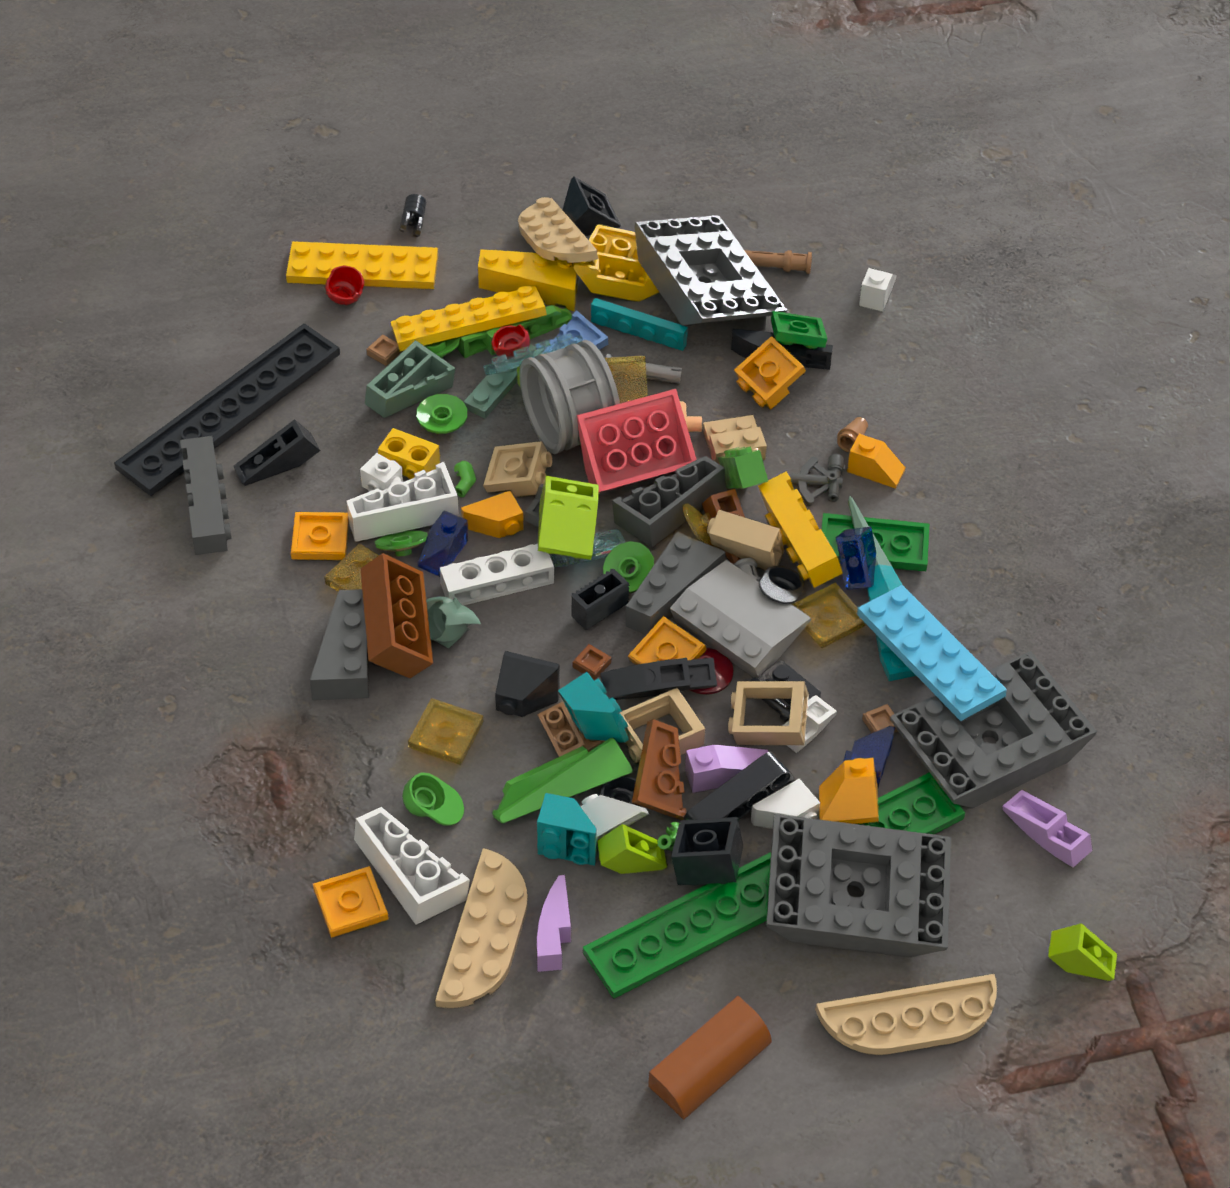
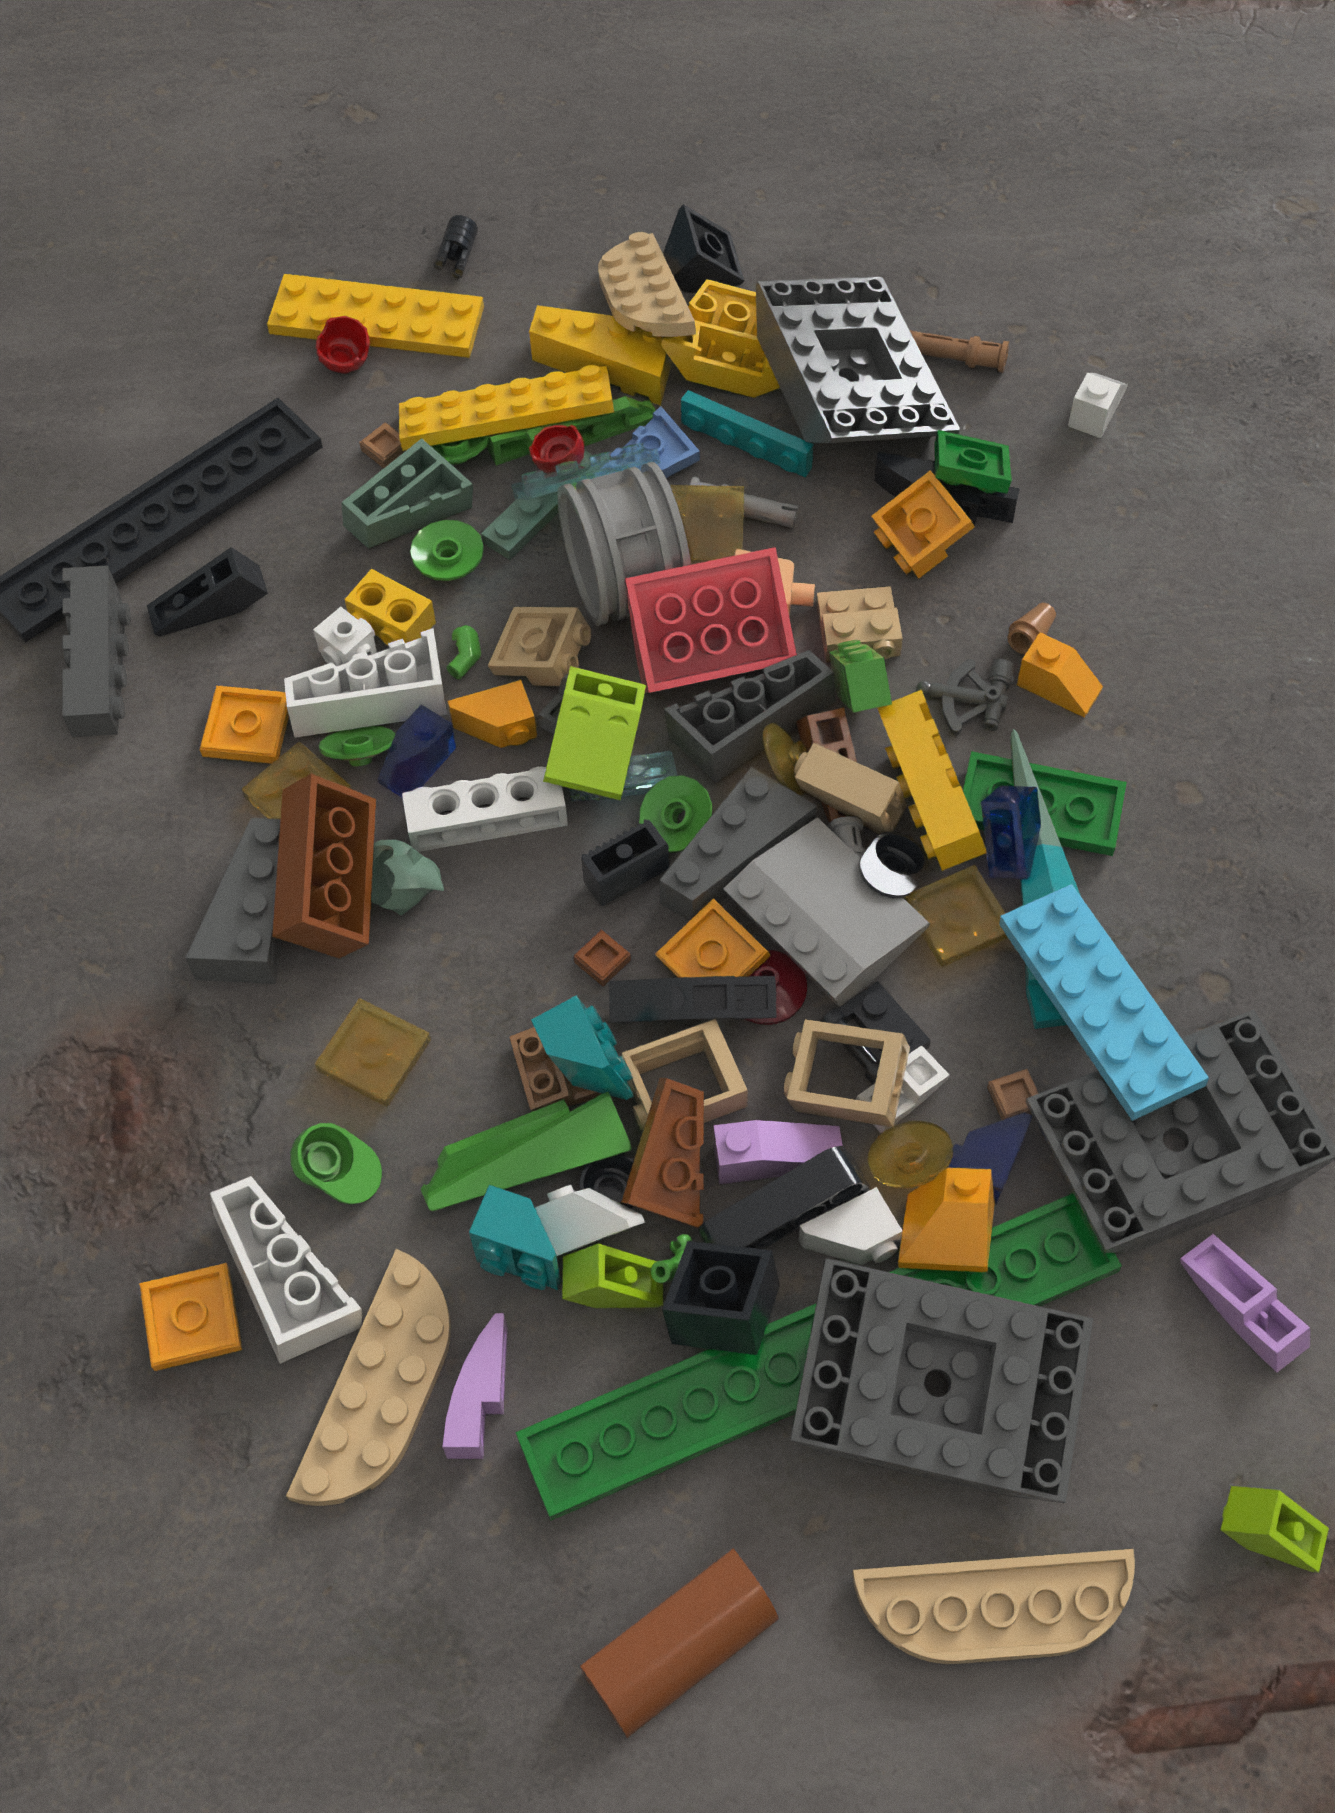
camera: 10 degrees right, 10 degrees up
(526, 684) = (495, 993): black slope -> none
(817, 759) = (910, 1154): none -> clear yellow dish

